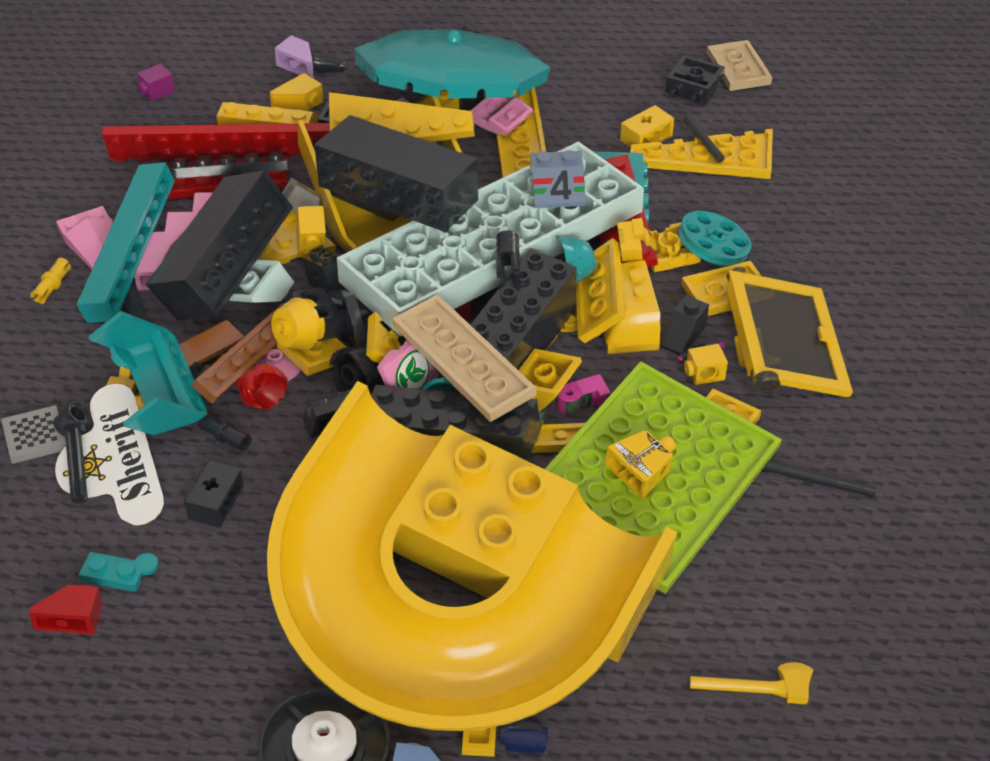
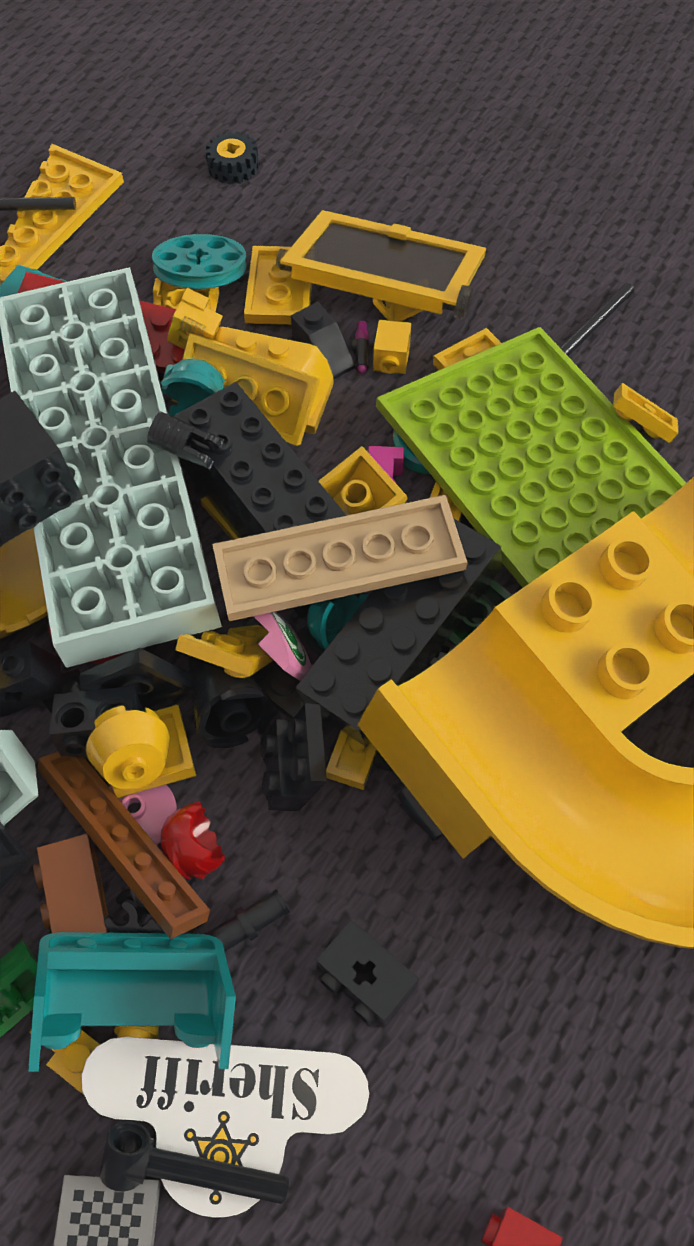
camera: 65 degrees left, 15 degrees up
(117, 571) = (453, 1167): teal hinge -> none
(557, 179) = (71, 338): sand blue slope -> none
(641, 461) = (544, 454): yellow torso -> none
(734, 523) = (654, 419): none -> yellow plate
(835, 222) = (232, 157): none -> black wheel

